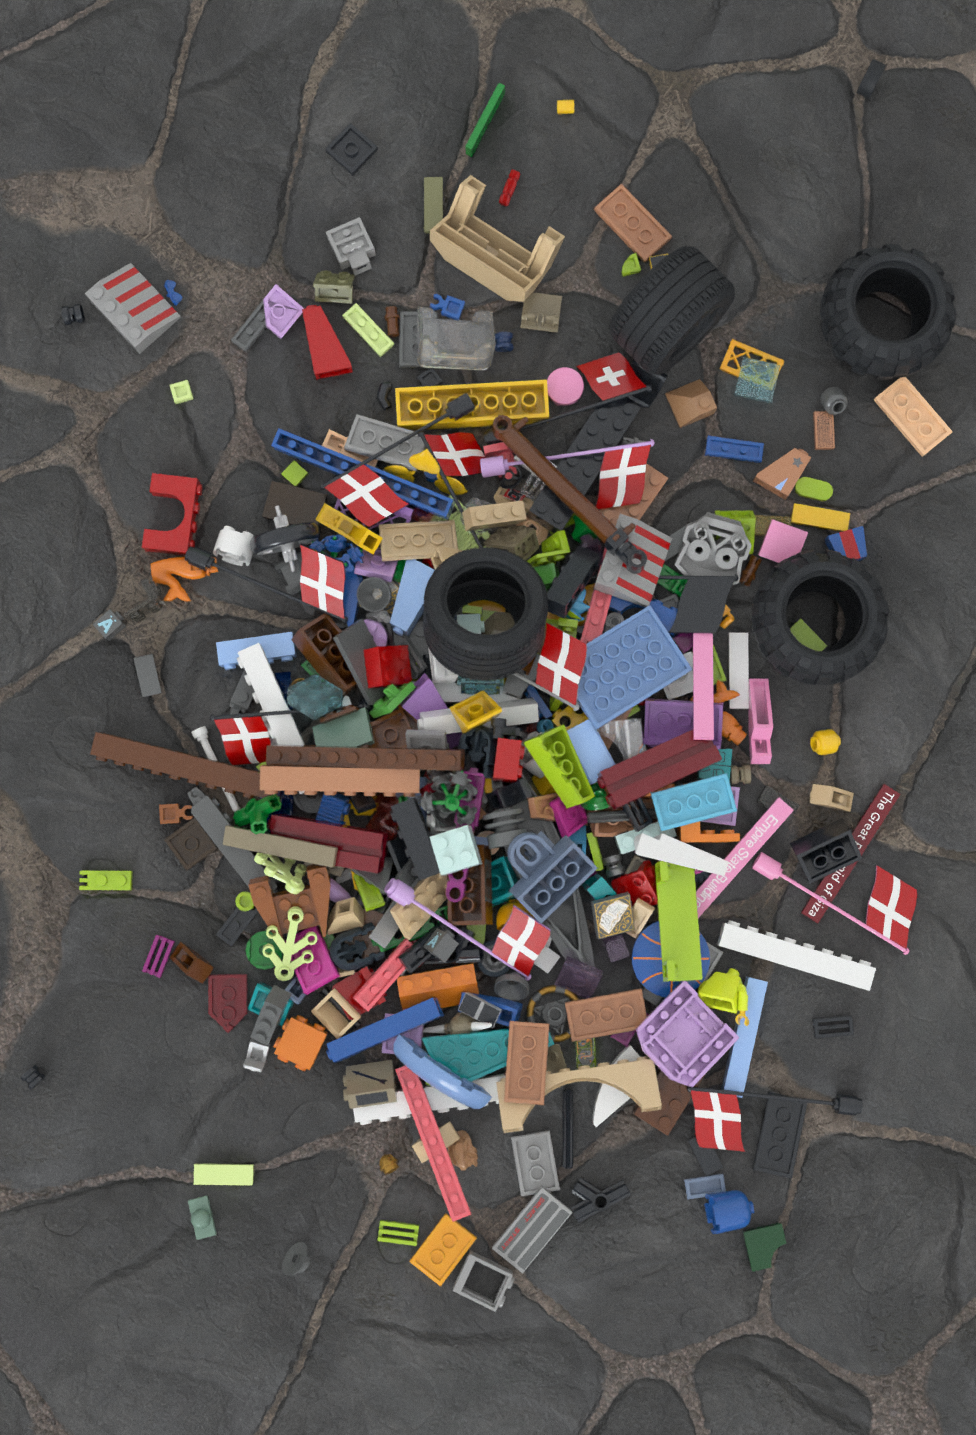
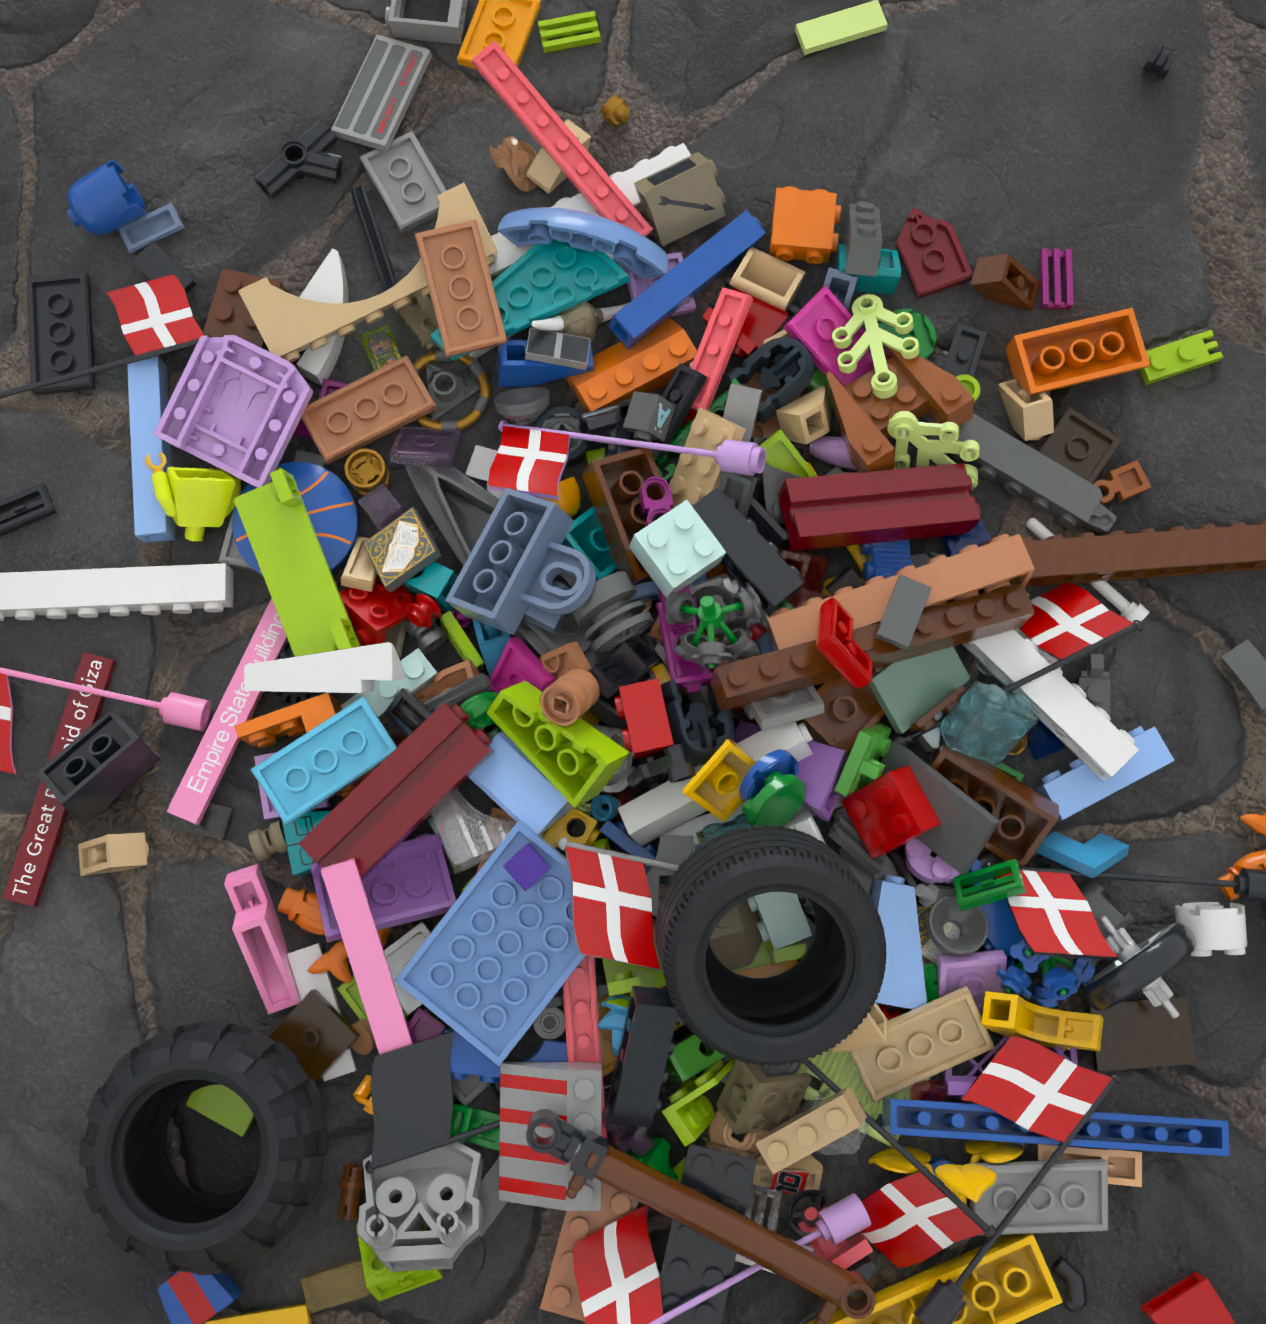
camera: 160 degrees right, 5 degrees down
(169, 899) = (1077, 352): none -> orange slope
(211, 879) = (1028, 414): none -> tan slope
(256, 813) = (1001, 512): green piece -> none
(256, 1056) = (858, 184): light grey bracket -> none
(280, 846) = (947, 476): dark tan tile -> none
(287, 606) = (1086, 858): none -> dark azure tile
(294, 473) = (1163, 1089): lime tile -> none
(343, 766) = (903, 612): none -> dark grey tile
(365, 607) = (988, 889): none -> green tile
(388, 759) = (839, 648): none -> red brick
(451, 689) = (776, 801): none -> green tile
(451, 703) = (774, 761): none -> blue tile
(545, 784) = (569, 697): none -> nougat wheel
(600, 701) = (527, 866): none -> dark purple tile
(612, 873) = (421, 614): none -> red wheel
(618, 973) = (365, 467): none -> pearl gold wheel
(720, 649) = (366, 1041): none -> medium nougat tile
(745, 658) = (315, 1035): none -> dark brown plate
(762, 1244) = (45, 180): dark green tile -> none
(782, 541) = (310, 1261): bright pink tile -> none
(825, 742) = (146, 941): yellow head -> none

